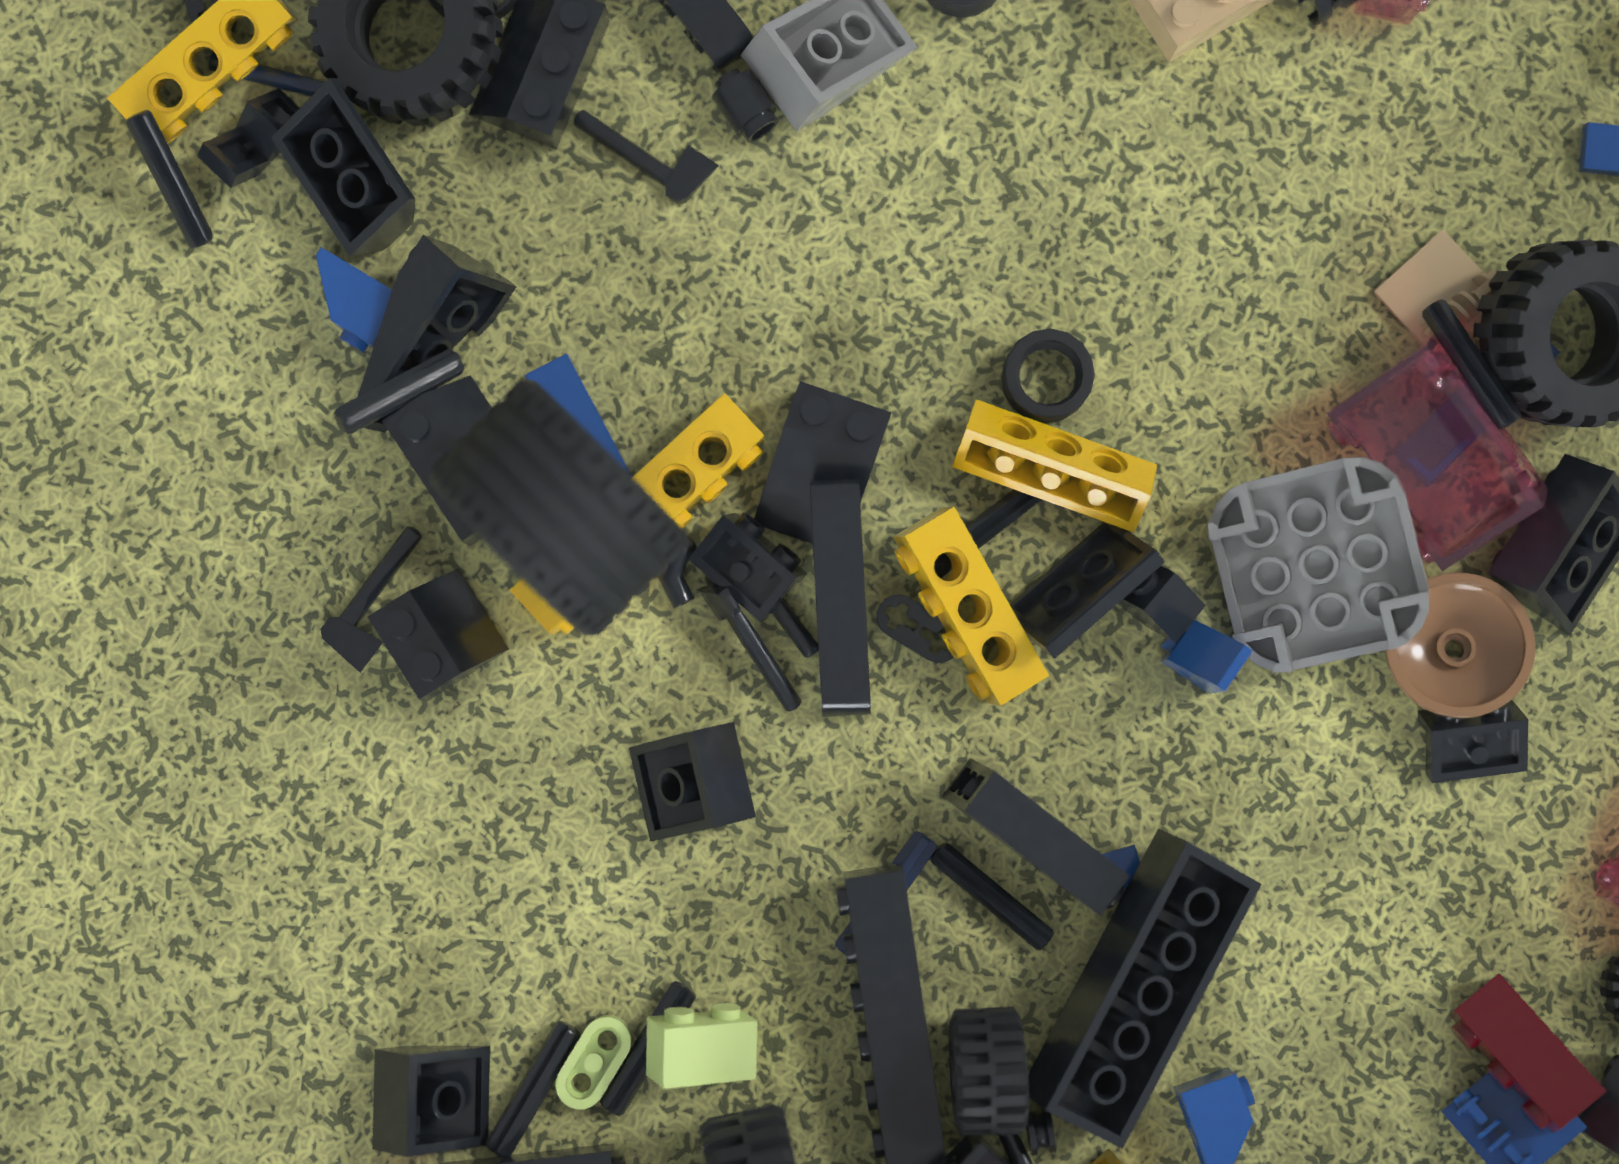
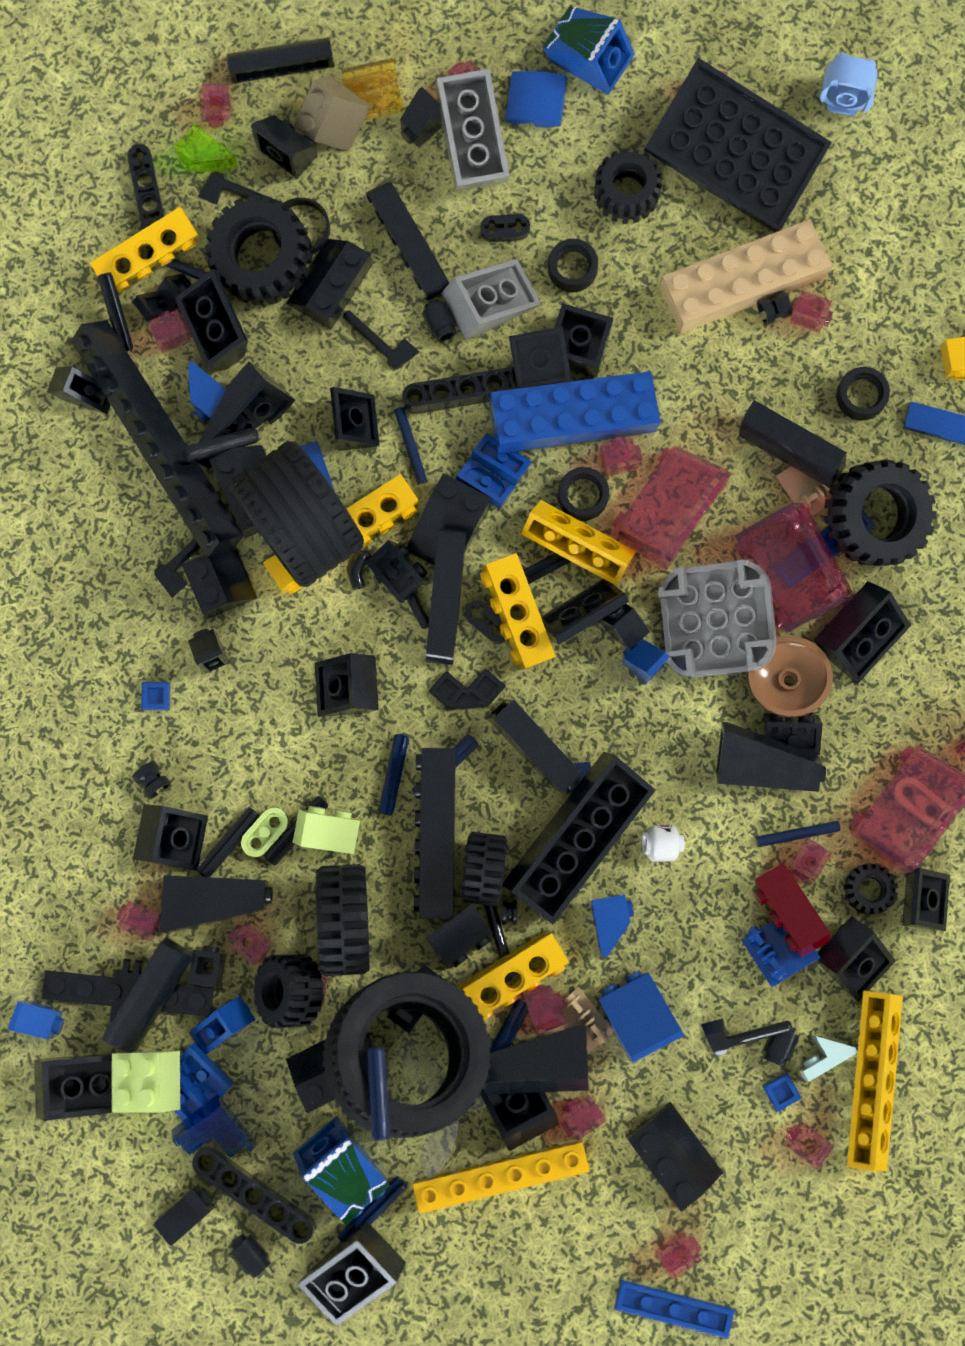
camera: 15 degrees right, 5 degrees down
(134, 327) = (78, 389): none -> black slope
(272, 196) = (170, 330): none -> clear pink brick
(282, 395) = (156, 438): none -> black brick
(362, 851) = (155, 696): none -> blue tile
(380, 1002) = (151, 779): none -> black wheel
(438, 759) = (208, 650): none -> black slope
(625, 305) = (354, 419): none -> black slope
(726, 607) = (381, 592): black piece -> none
(731, 336) = (410, 445): none -> dark blue bar
(799, 923) = (393, 774): none -> dark blue axle
(832, 205) = (453, 387): none -> black beam
(892, 339) = (507, 466): none -> blue slope
(922, 759) = (477, 695): none -> black tile
(937, 149) = (540, 358): none -> black plate
(992, 896) = (504, 777): black axle -> none
(998, 103) = (585, 338): none -> black brick
(1009, 234) = (574, 412): none -> blue brick
(1101, 298) = (620, 456): none -> clear pink brick
(1207, 374) = (670, 505): none -> clear pink windscreen
(1283, 970) = (662, 843): none -> white head
(1400, 233) = (793, 444): none -> black brick
(1438, 801) = (764, 762): none -> black slope
(1471, 364) = (819, 521): black axle -> none
(1509, 912) = (799, 833): none -> dark blue bar
(1529, 96) = (873, 376): none -> black tyre
(1538, 960) = (808, 861): none -> clear pink brick

